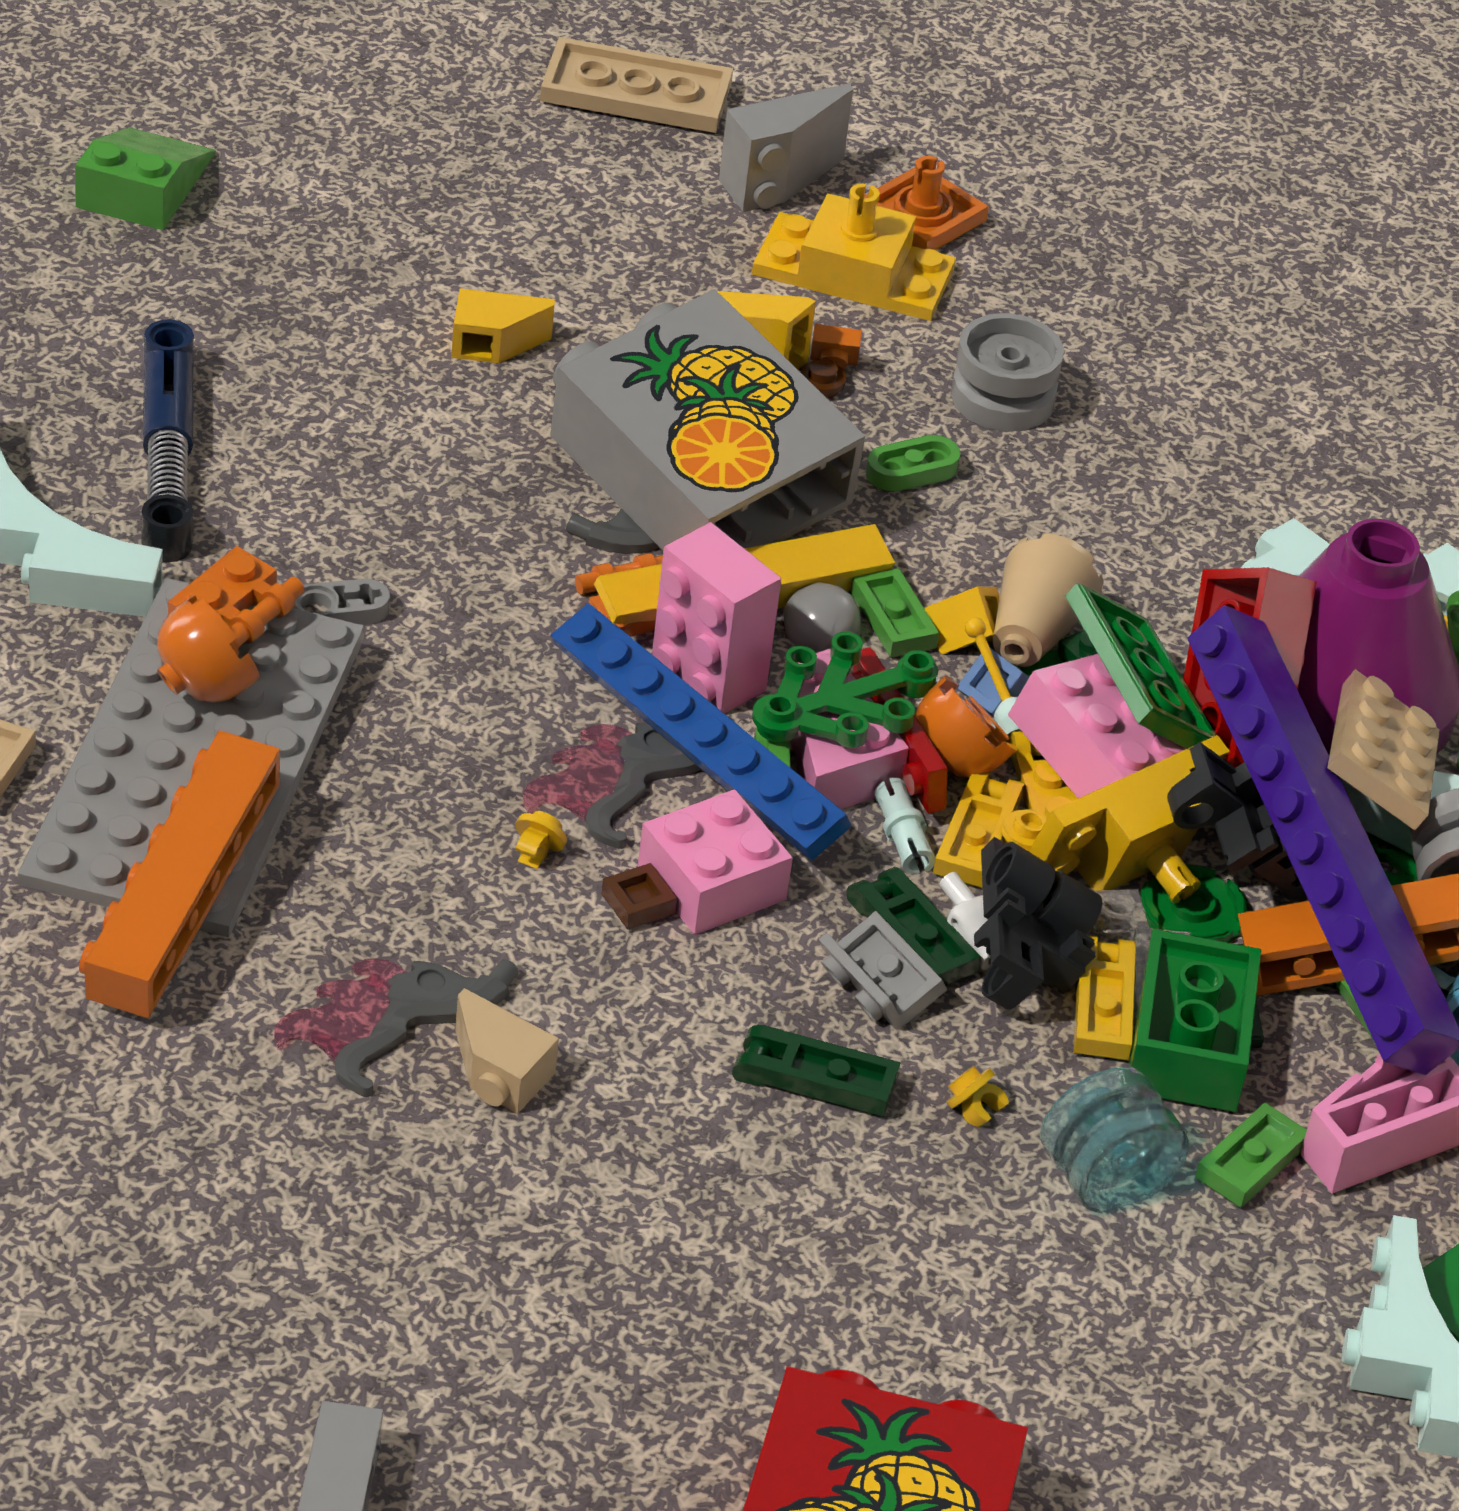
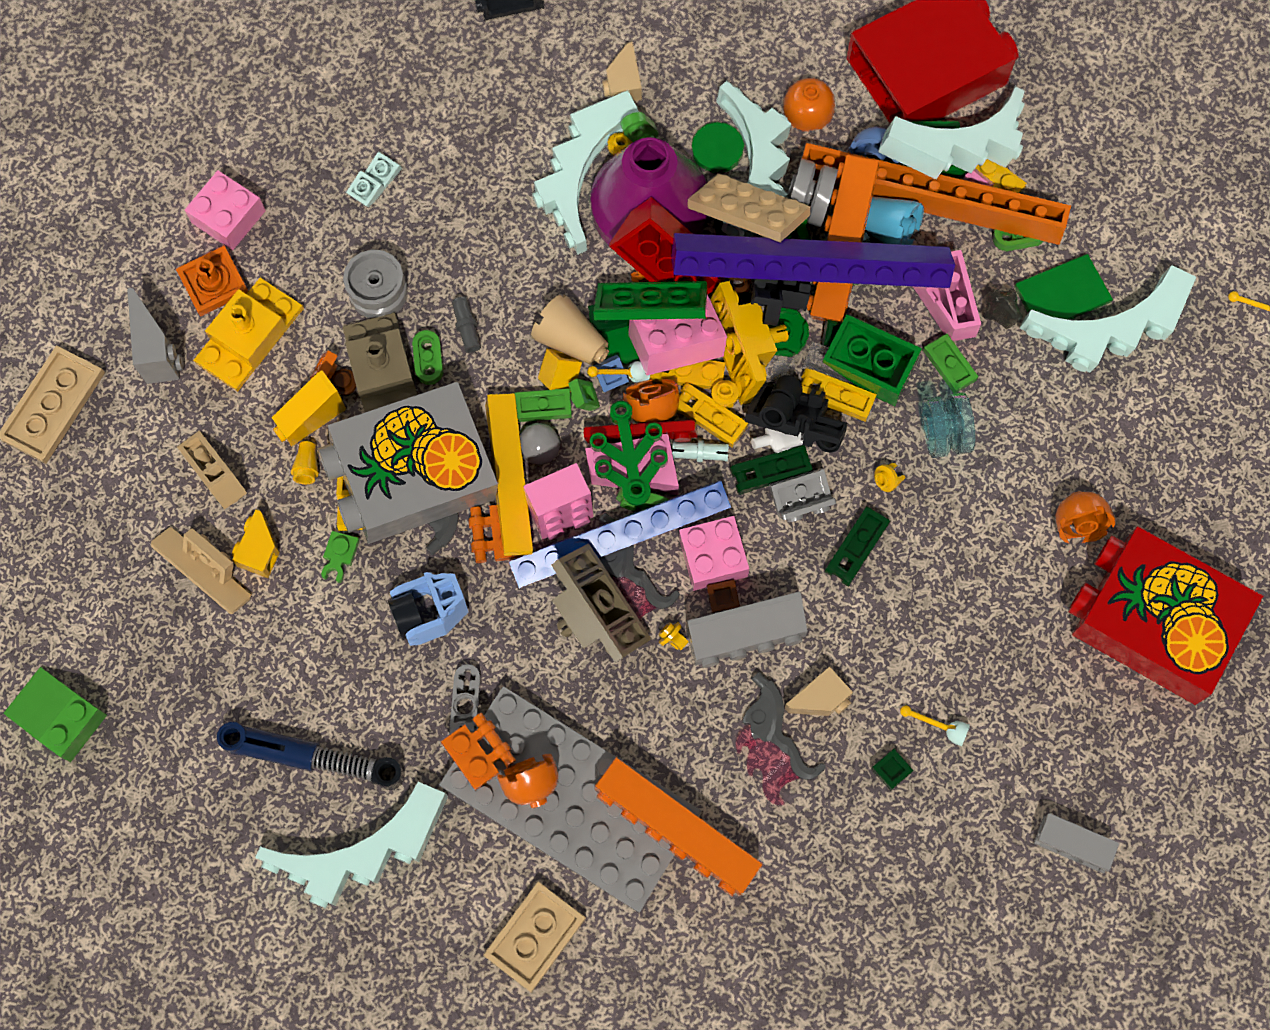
camera: 65 degrees left, 30 degrees up
(394, 1182) = (892, 769): none -> dark green plate
(435, 277) = (203, 566): none -> tan bracket
(467, 520) = (447, 599): none -> light blue piece
(504, 1260) = (955, 731): none -> hinge
(525, 423) = (340, 551): none -> bright green plate
(551, 696) = (595, 606): none -> dark tan brick
(588, 917) = (747, 629): none -> light grey slope
(597, 259) = (212, 470): none -> tan slope
(888, 397) = (379, 361): none -> dark tan brick
(945, 647) = (583, 395): none -> bright green plate
(994, 498) = (466, 324): none -> dark grey pin
(1026, 1382) = (1088, 513): none -> orange cylinder
(1047, 195) = (225, 210): none -> bright pink brick
(1183, 352) = (372, 182): none -> light aqua slope
(1411, 1196) = (1002, 307): none -> clear smoke rock

